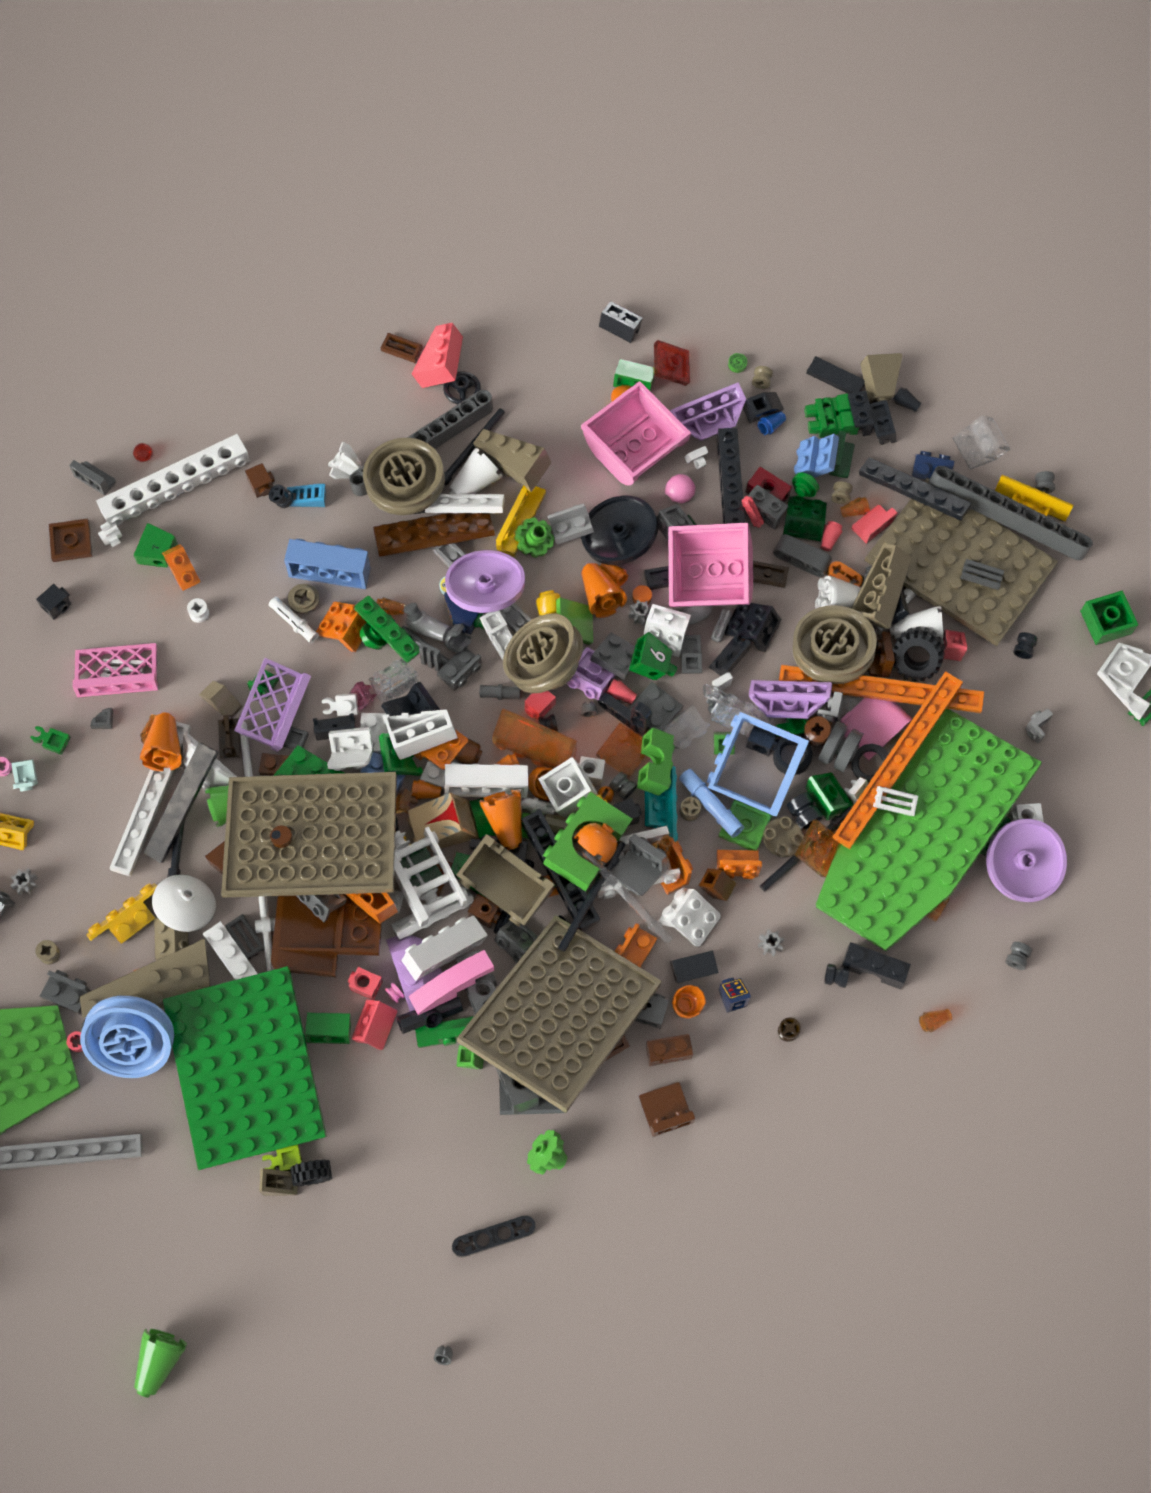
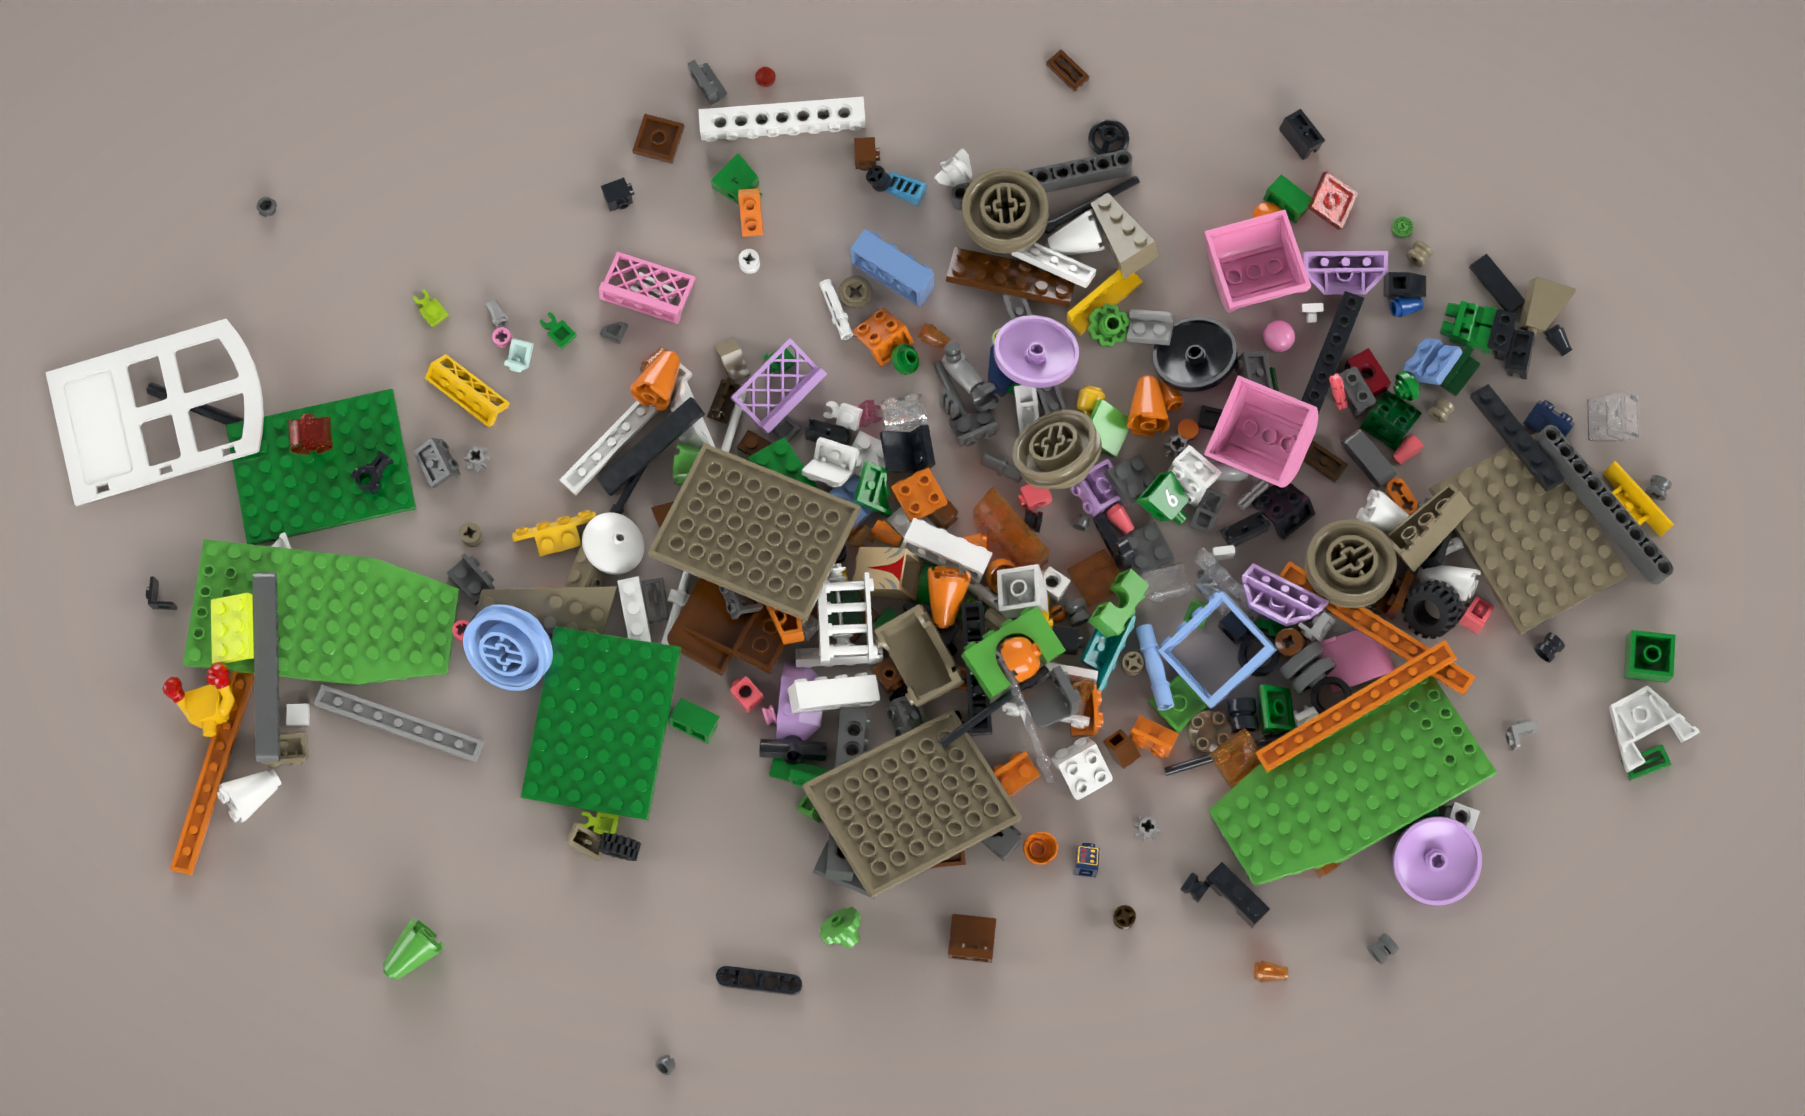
camera: 30 degrees right, 5 degrees up
(110, 534) = (698, 149): white gear -> none
(281, 836) = (726, 522): reddish brown tile -> none
(374, 1024) = (738, 736): coral panel -> none
(387, 628) = (920, 358): green bracket -> none
(419, 731) = (902, 476): white wedge -> none
(440, 357) = (1100, 97): coral wedge -> none
(451, 981) = (825, 728): bright pink slope -> none
(669, 1050) = (1000, 884): reddish brown brick -> none
(694, 966) = (1062, 817): black hinge -> none
(855, 508) = (1447, 431): clear orange cone -> none
(874, 523) = (1459, 454): coral panel -> none
(879, 797) = (1317, 734): white tile -> none
(982, 571) = (1531, 539): dark grey tile -> none

